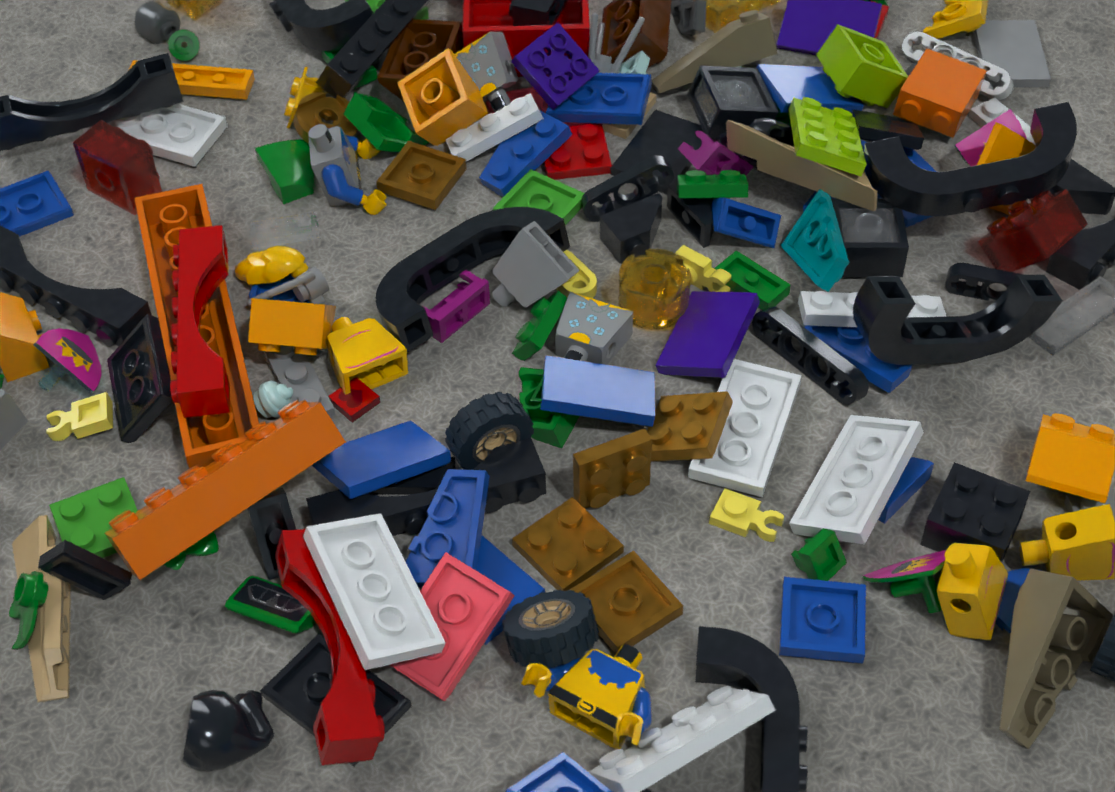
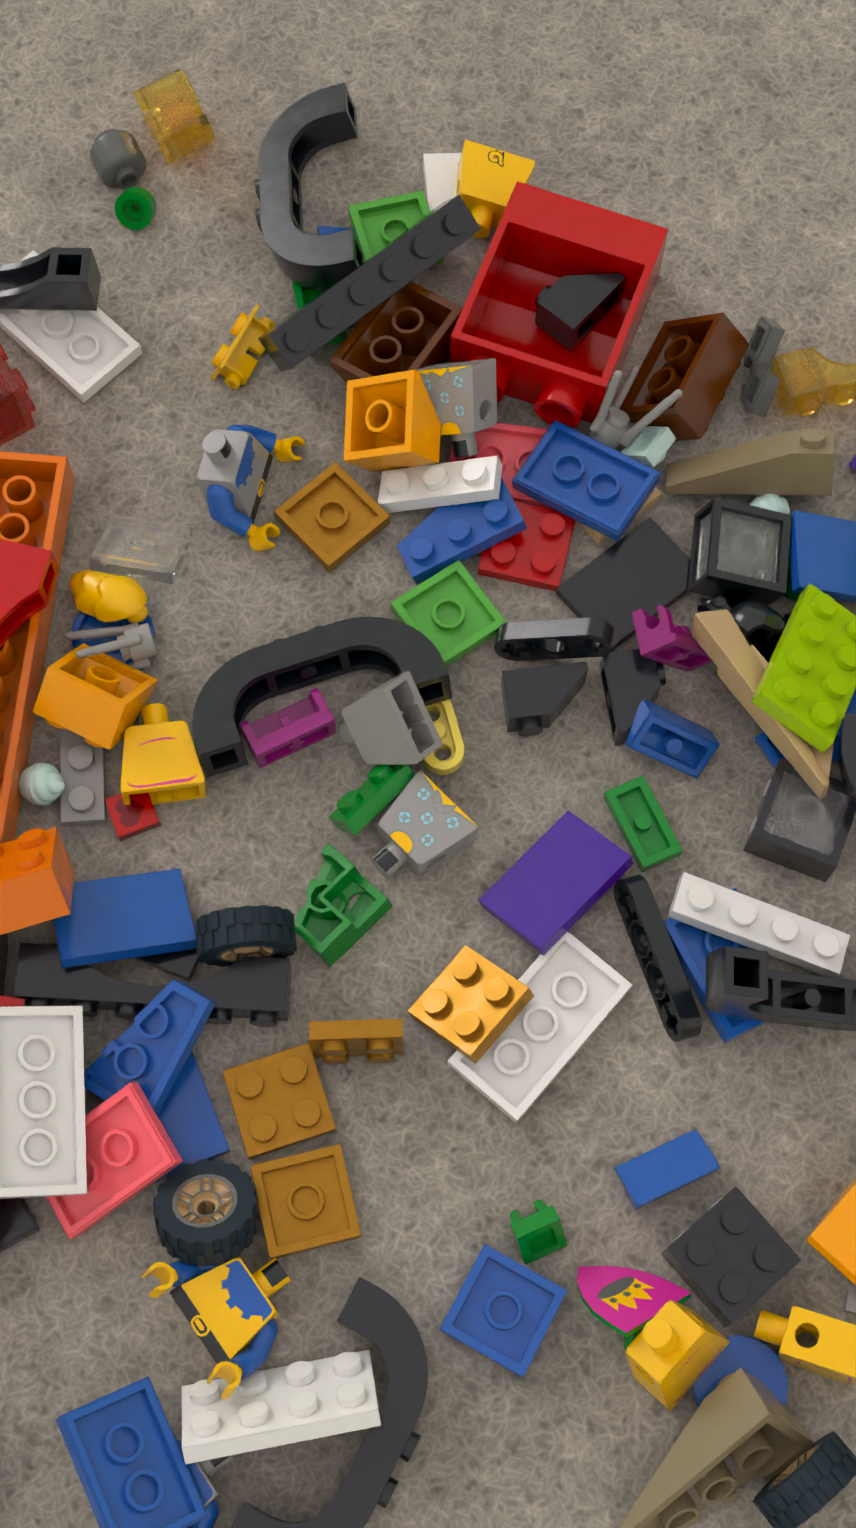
camera: 20 degrees right, 20 degrees up
(213, 81) = (129, 267): light orange plate -> none
(288, 168) = (180, 447): green slope -> none
(318, 106) = (263, 377): pearl gold plate -> none
(380, 123) = (310, 426): green slope -> none
(548, 72) = (519, 420): dark purple plate -> none
(598, 391) = (392, 920): tile -> none
(654, 288) = (519, 776): clear yellow brick -> none
(699, 185) = (648, 684): green plate -> none
(701, 271) = (582, 783): light yellow plate -> none
(741, 513) = (480, 1136): light yellow plate -> none
(818, 243) = (733, 814): teal wing -> none
(857, 478) = (625, 1151): white plate -> none

